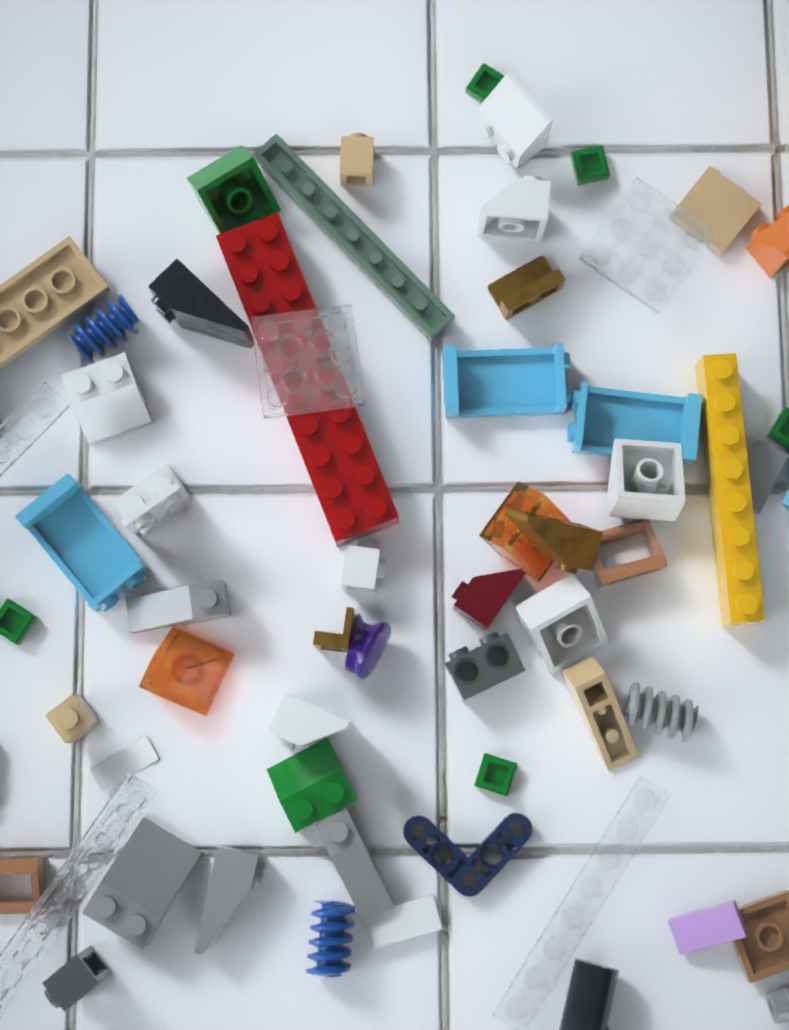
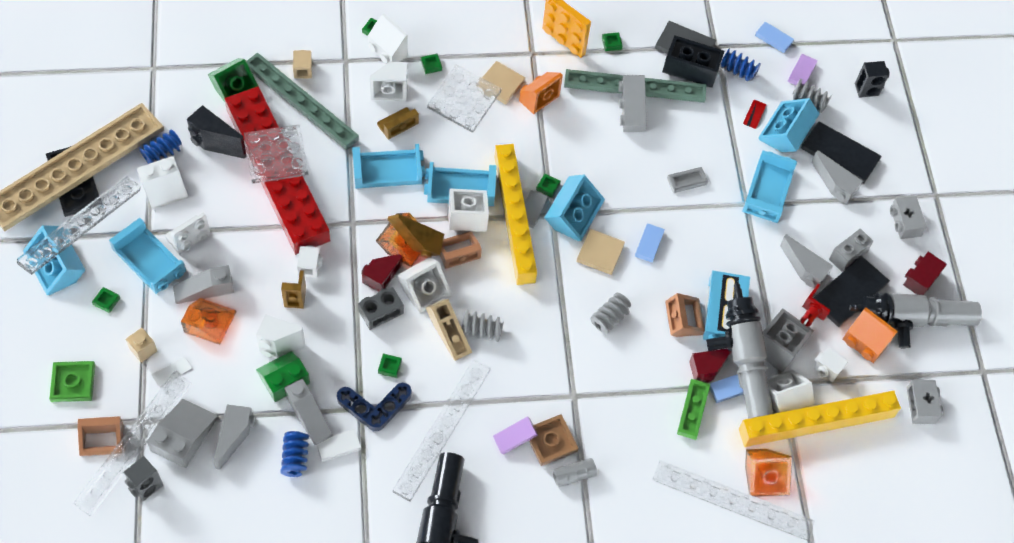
camera: 10 degrees left, 20 degrees down
(366, 646) = (313, 298): dark purple piece -> none

